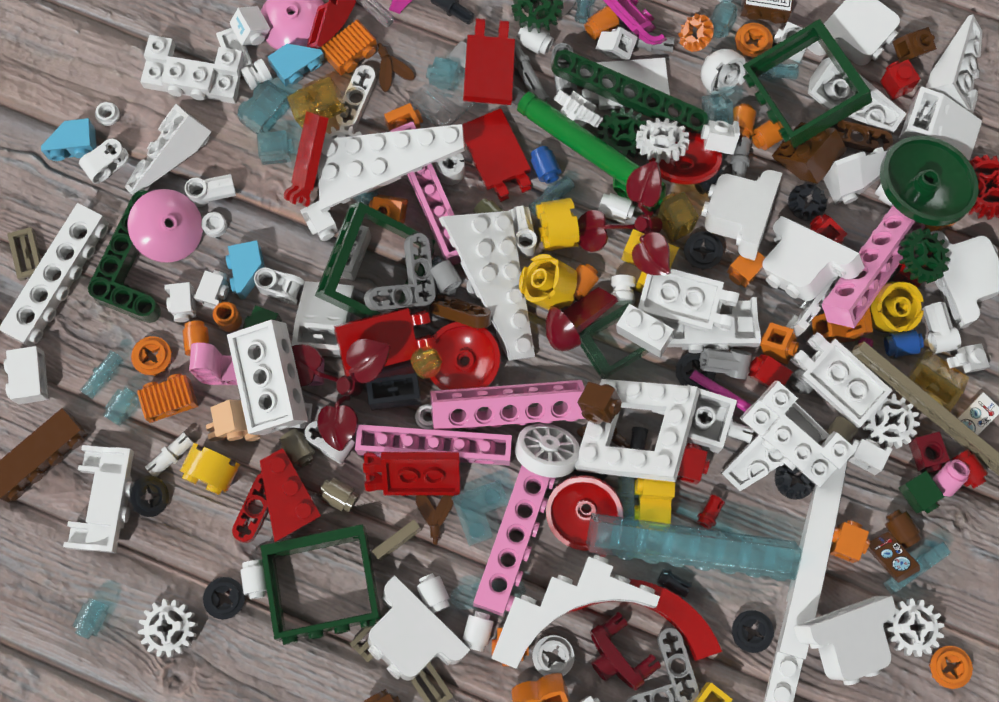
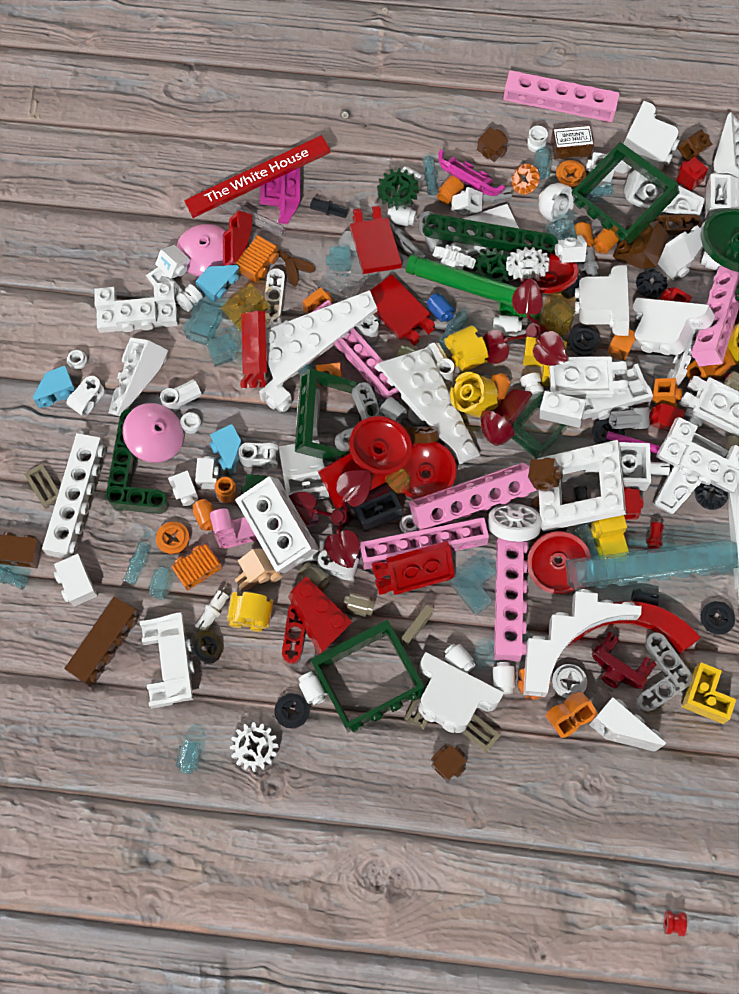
camera: 15 degrees left, 5 degrees down
(417, 302) = (381, 435): none -> red dish
(433, 517) = (439, 601): reddish brown piece -> none

